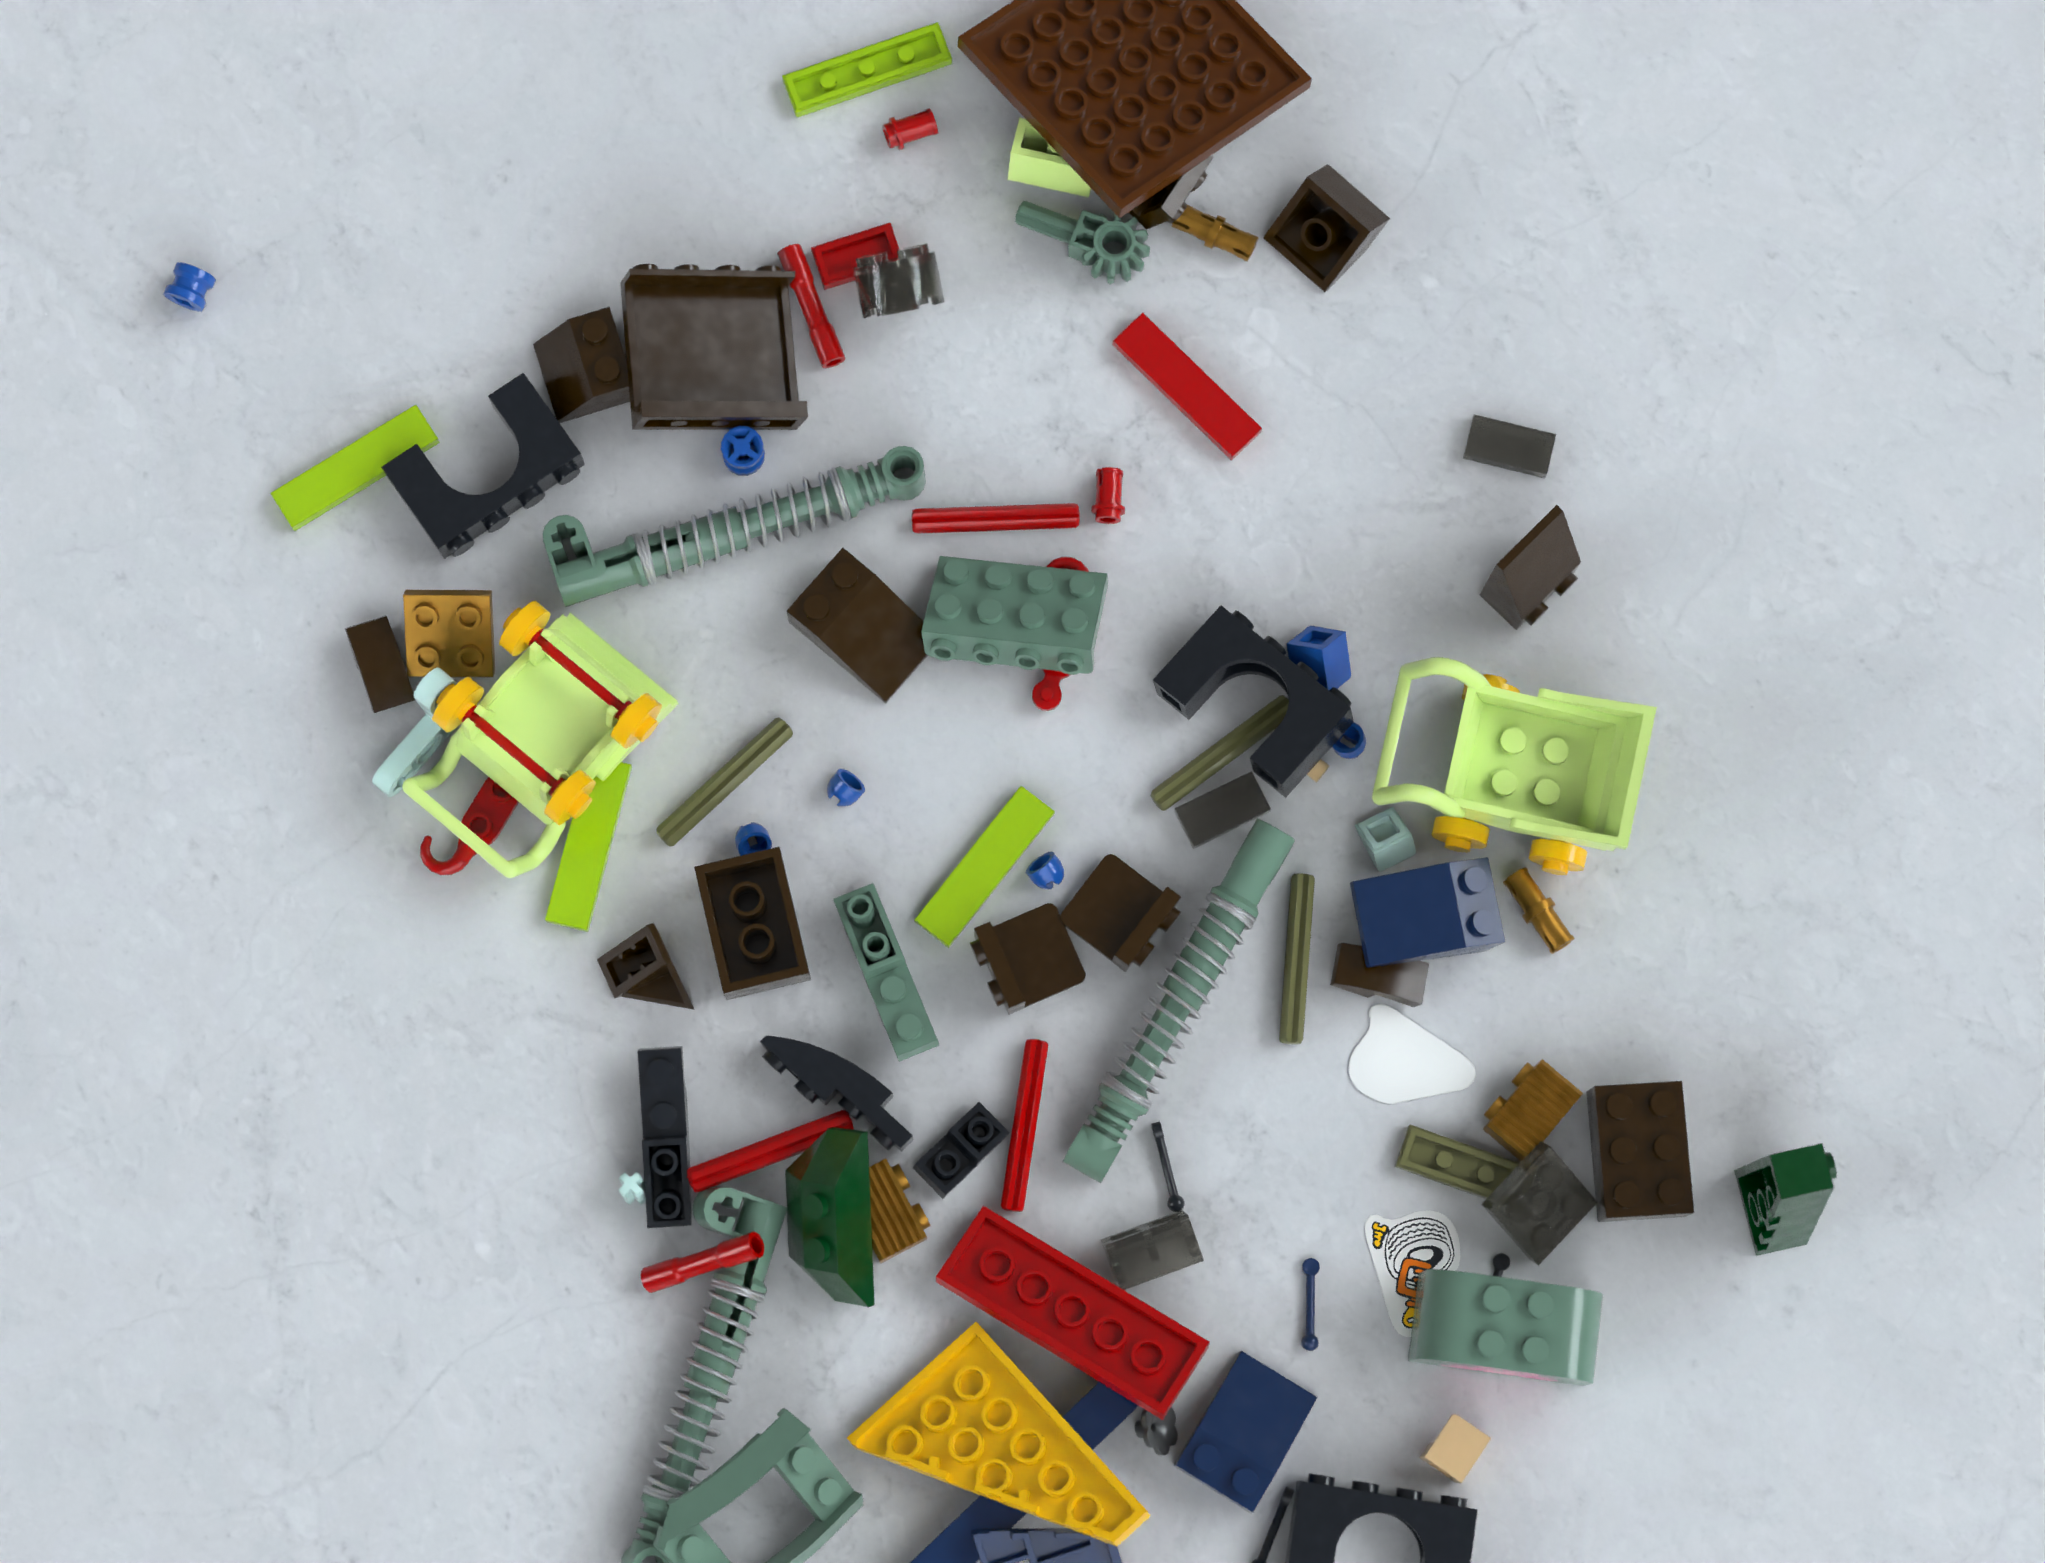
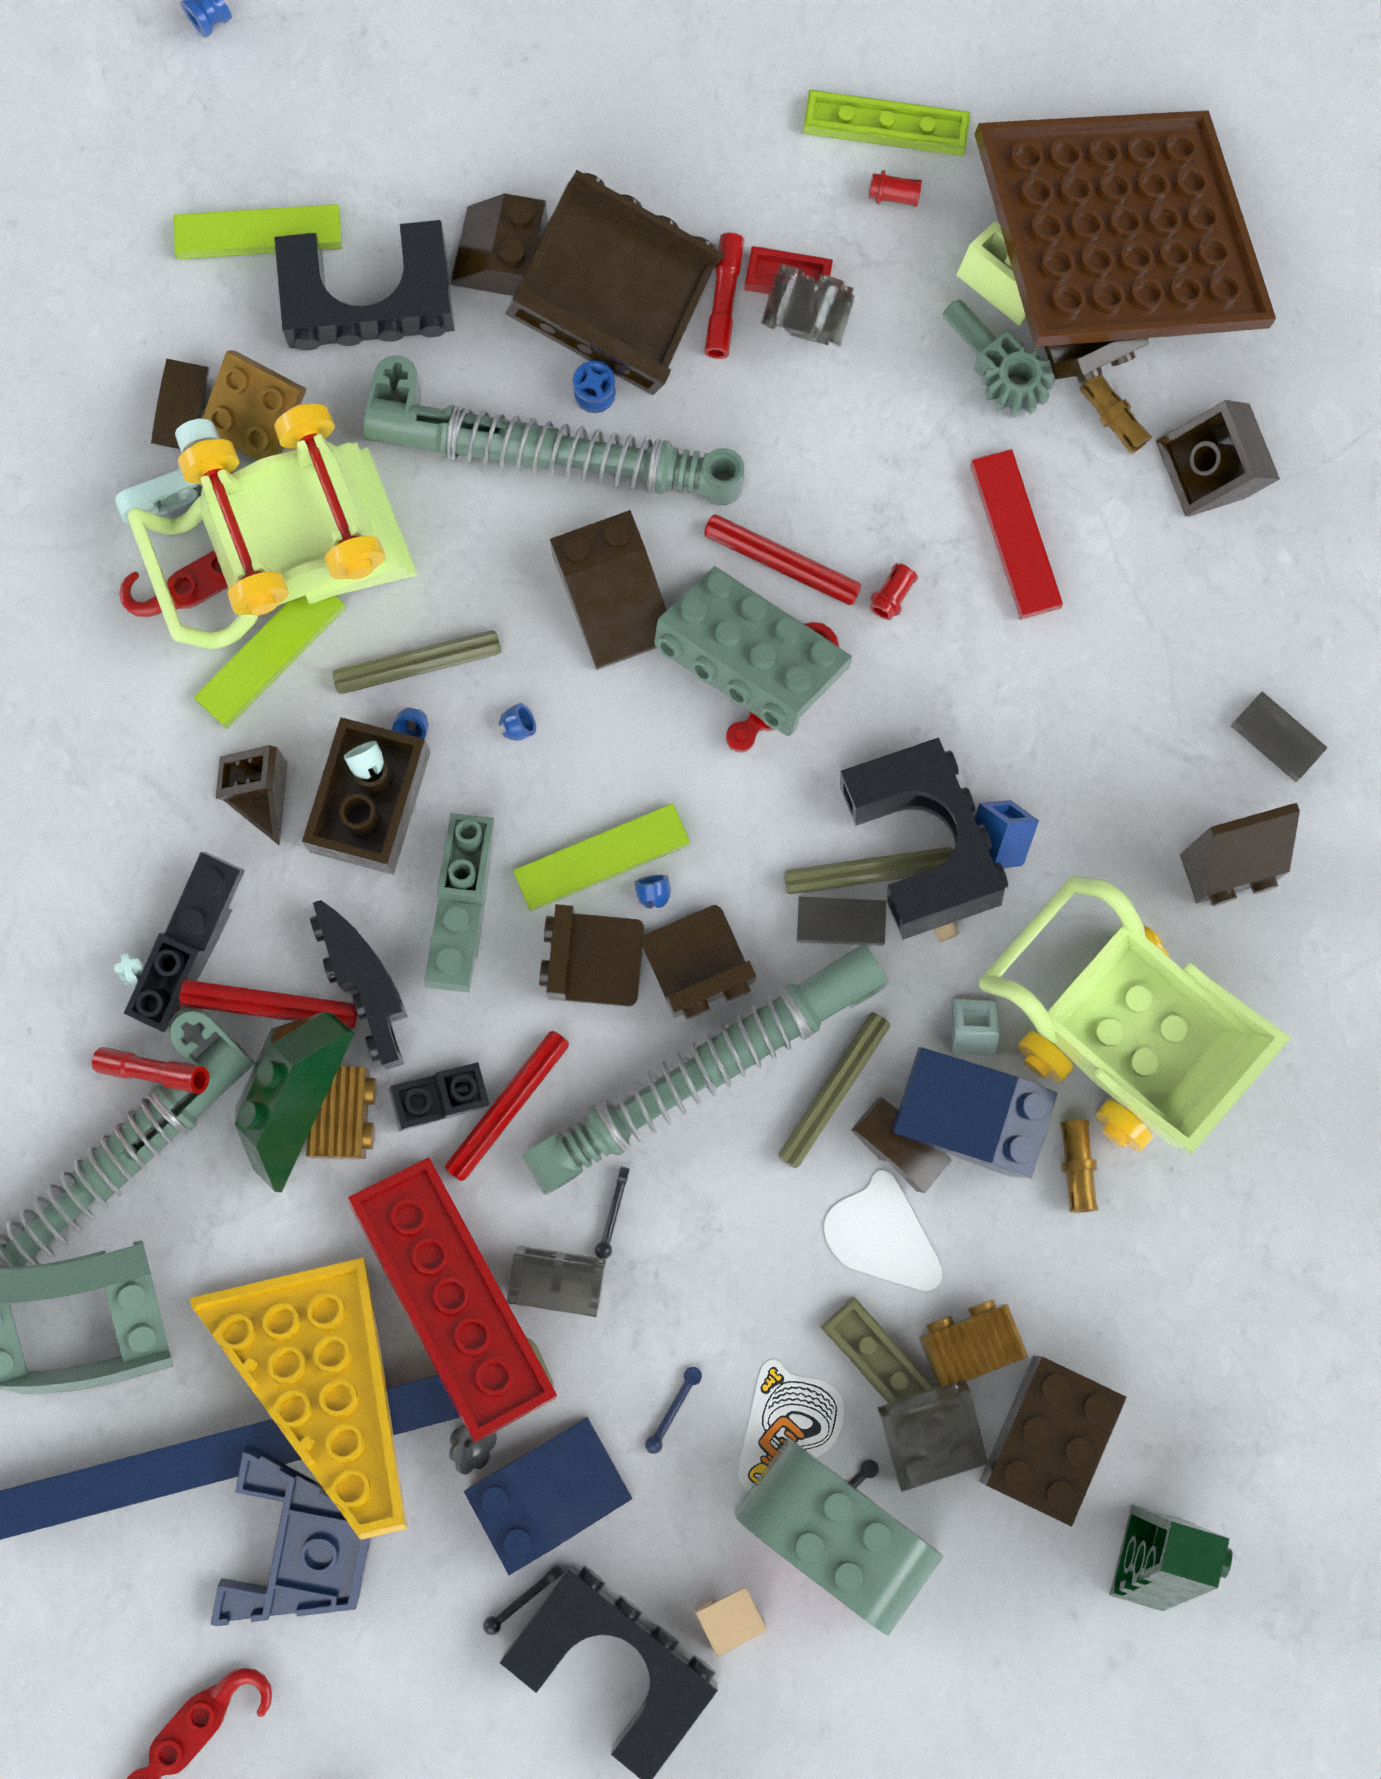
camera: 30 degrees right, 0 degrees up
(739, 891) = (363, 758): none -> light aqua hinge
(1354, 735) = (997, 919): blue hinge -> none

